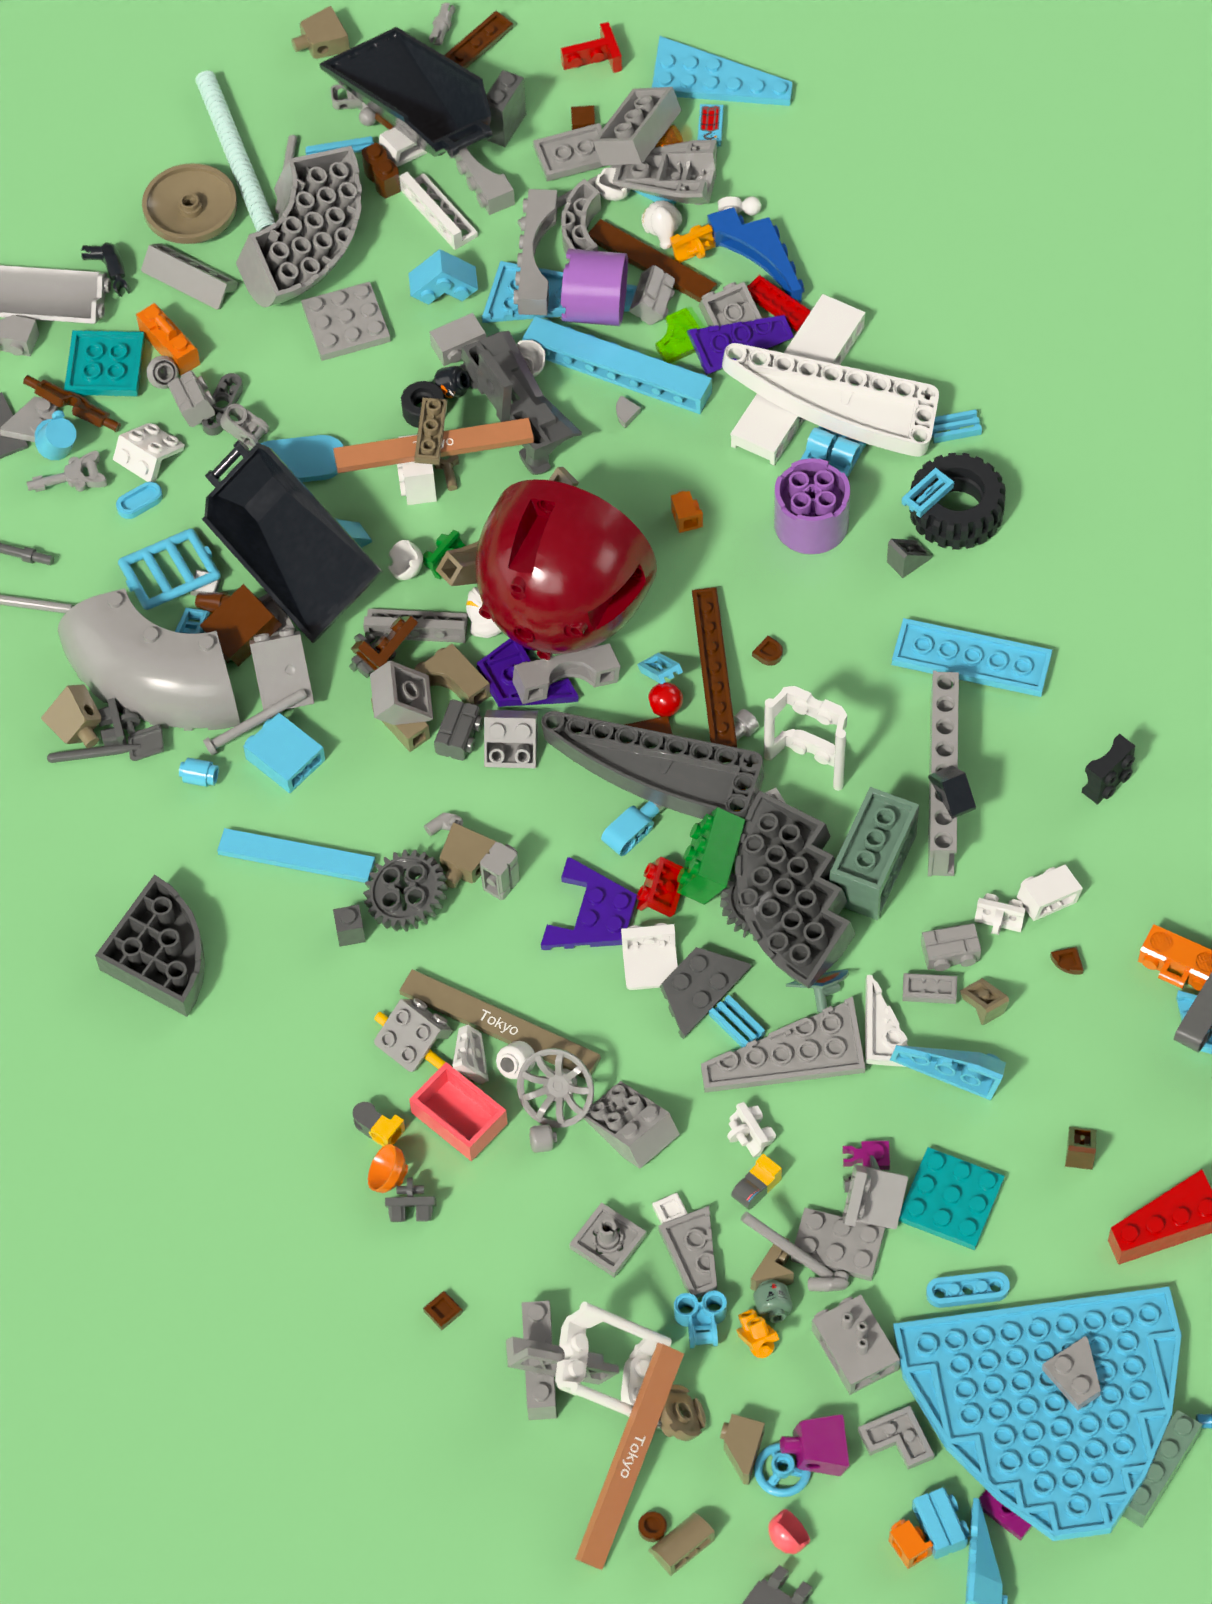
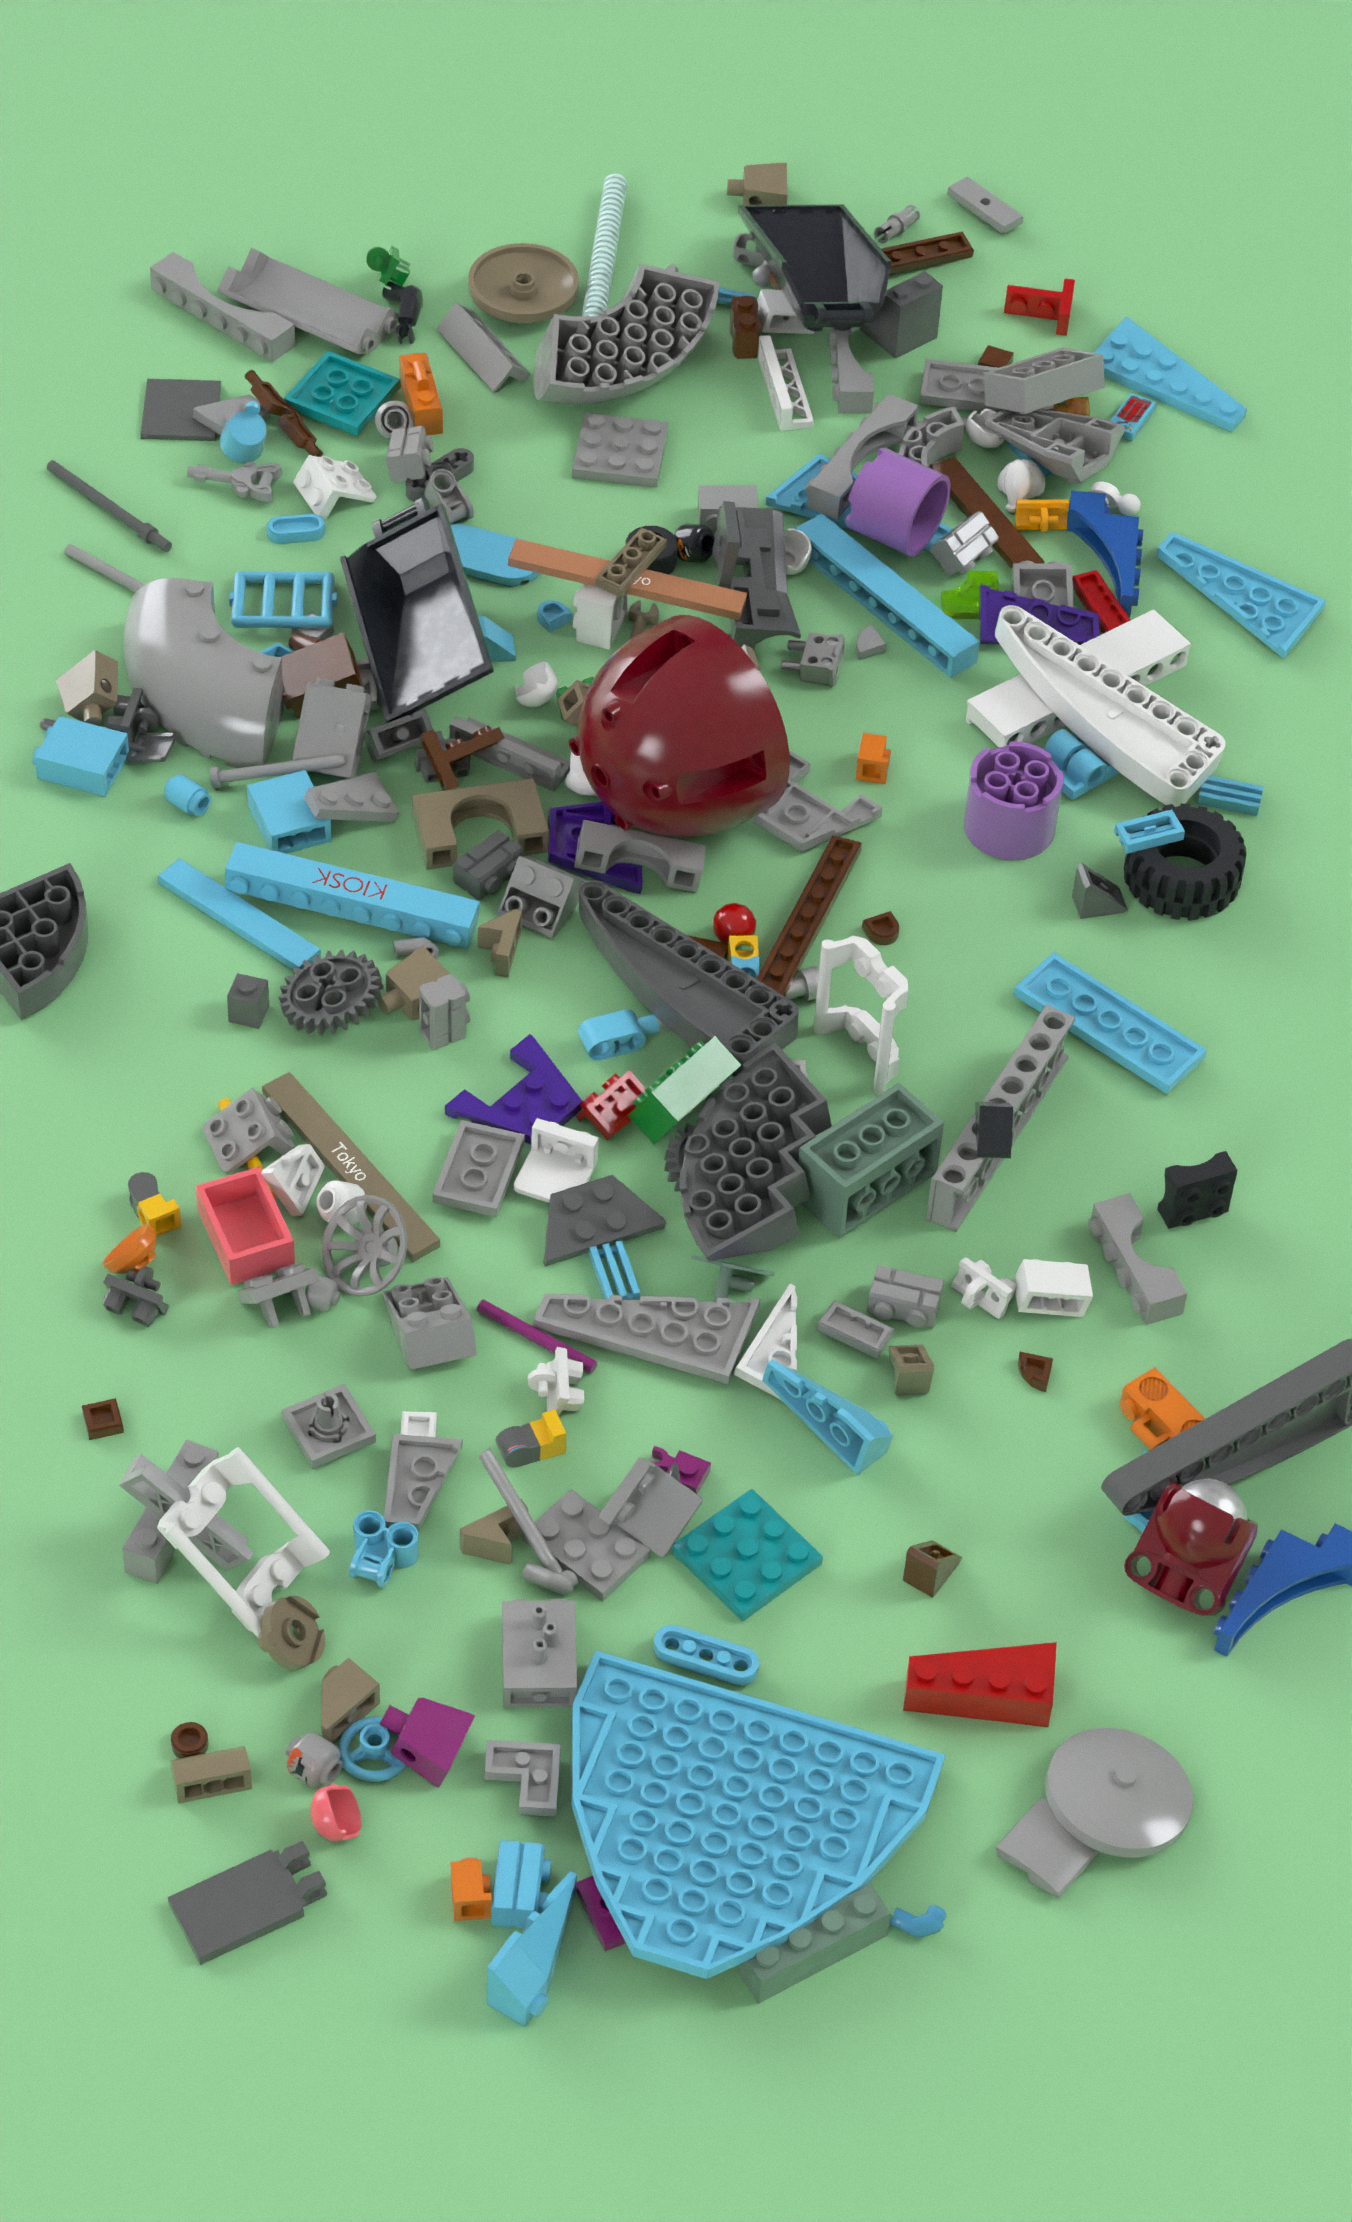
camera: 20 degrees right, 10 degrees down
(76, 232) = (387, 265): none -> green hips
(97, 774) = (81, 755): none -> medium azure brick
(327, 721) = (352, 799): none -> light grey wing
(330, 650) = (397, 735): none -> dark grey brick
(373, 802) = (351, 895): none -> medium azure brick
(378, 490) = (553, 615): none -> medium azure tile
(400, 694) = (443, 799): light grey slope -> none
(442, 275) = (746, 439): medium azure brick -> none
(503, 786) = (502, 938): none -> dark tan slope
(511, 1148) = (288, 1279): none -> light grey plate
(594, 984) = (478, 1168): none -> light grey plate
(600, 442) = (820, 658): none -> light grey piece
(629, 1456) = (201, 1646): nougat tile -> none
(656, 671) = (740, 889): medium azure tile -> none
(676, 583) = (806, 819): none -> light grey wing
(688, 724) = (744, 959): none -> leg
(710, 1098) = (533, 1334): none -> magenta bar
(748, 1499) = (313, 1760): none -> light grey head
(757, 1334) = (431, 1593): light orange hips -> none
(772, 1301) = (472, 1565): sand green head -> none
(887, 249) = (1258, 601): none -> medium azure wing
(1075, 1373) = (771, 1791): light grey wing -> none
(1116, 861) = (1152, 1289): none -> light grey arch

